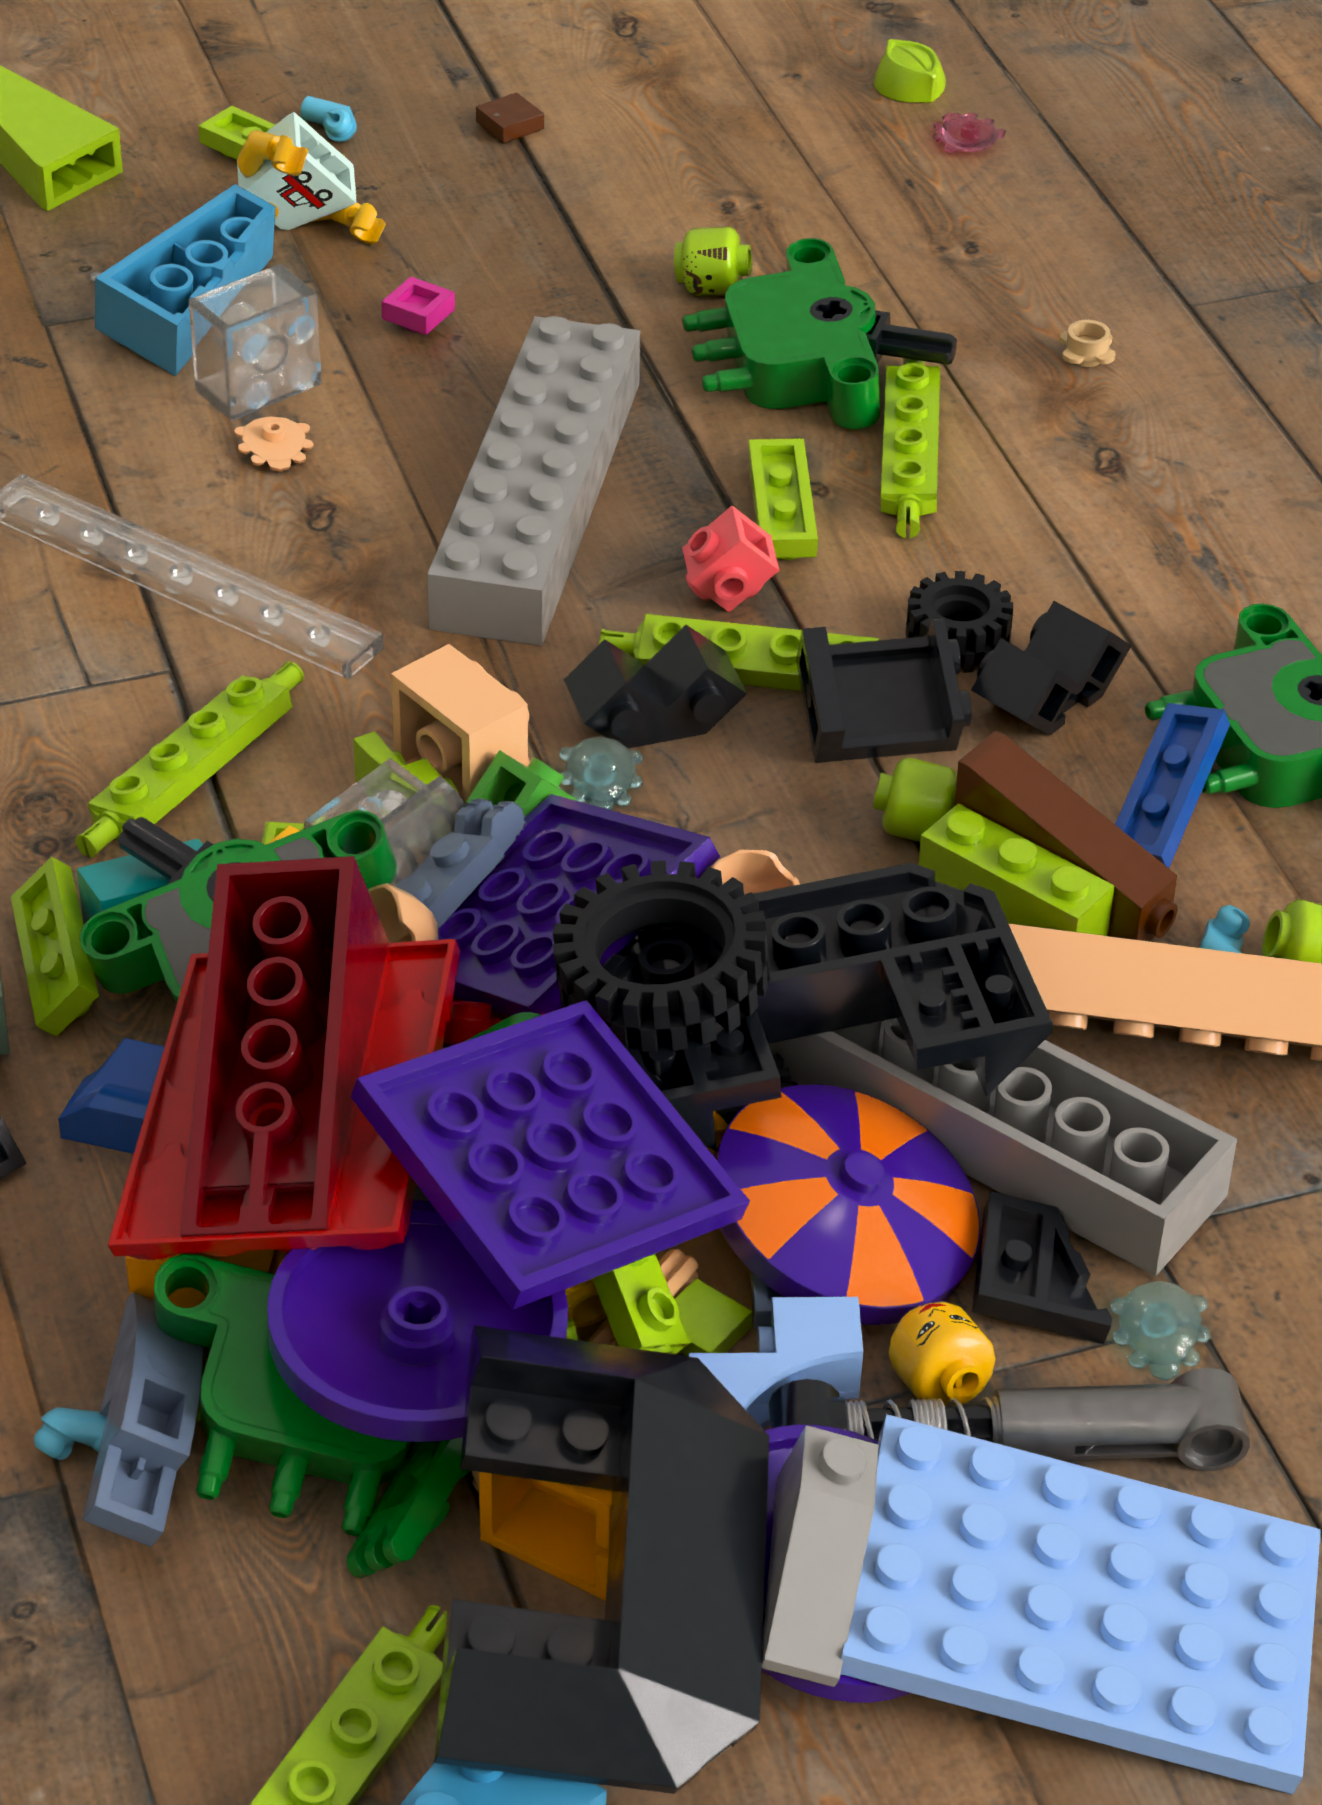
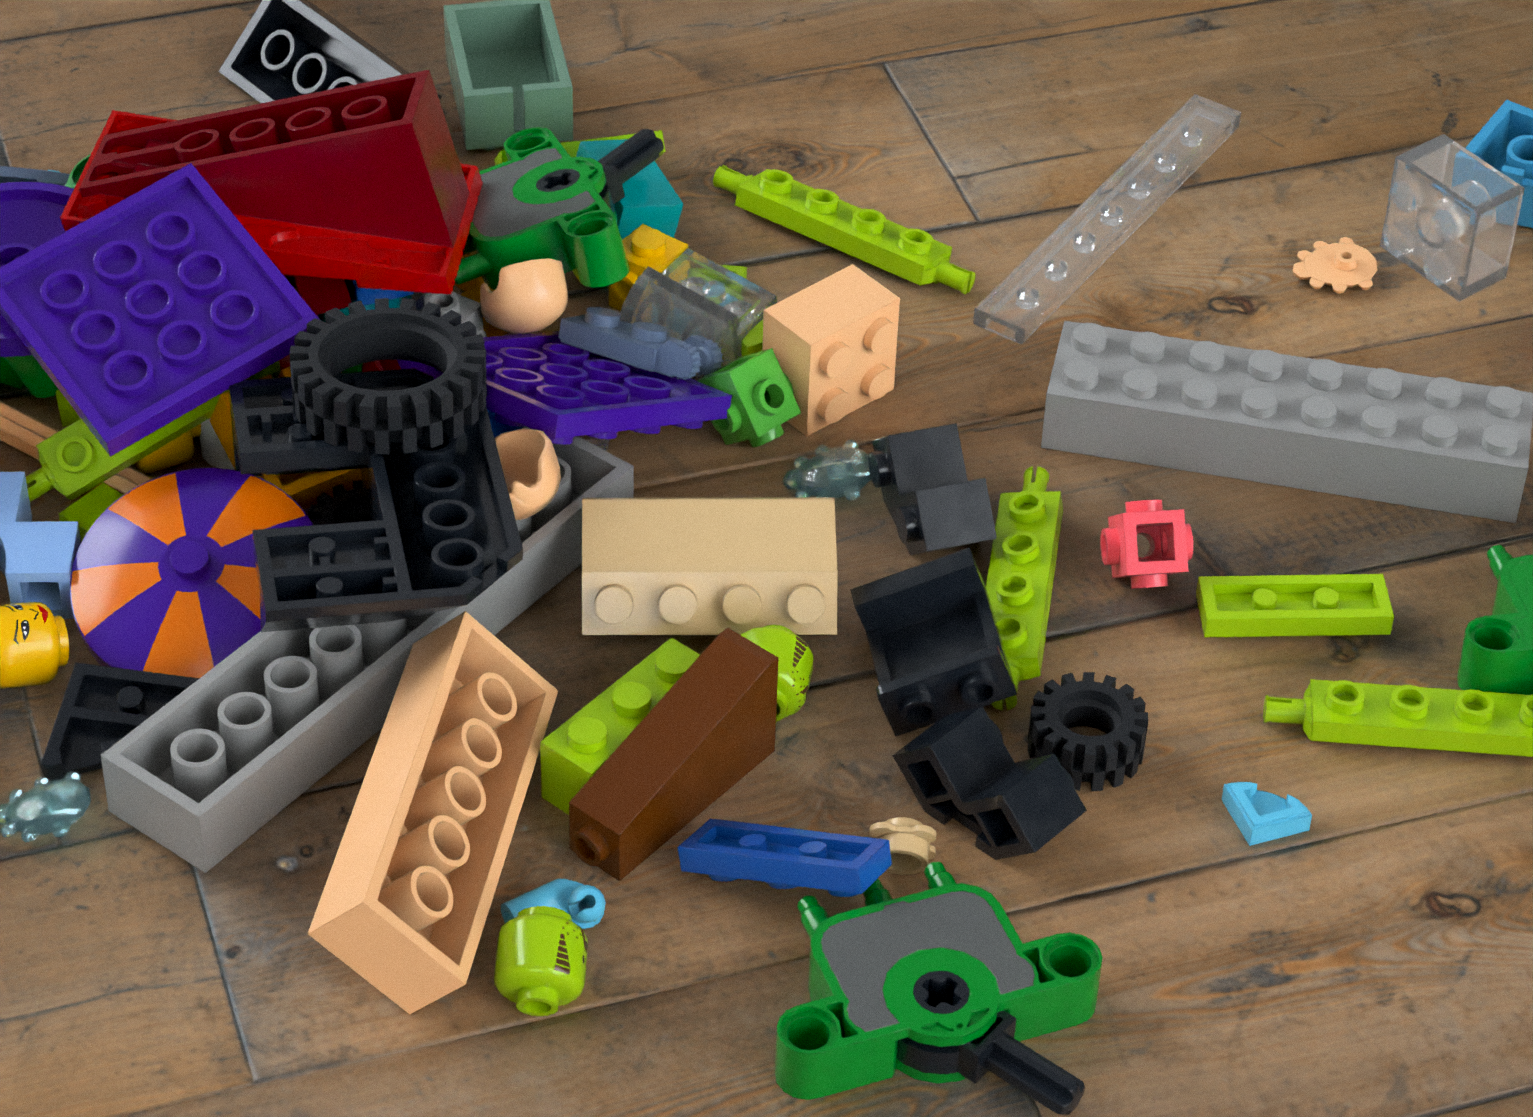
camera: 90 degrees right, 0 degrees up
(810, 792) = (708, 565): none -> tan slope
(1031, 541) = (1263, 814): none -> medium azure tile
(1123, 730) = (908, 843): none -> tan plate

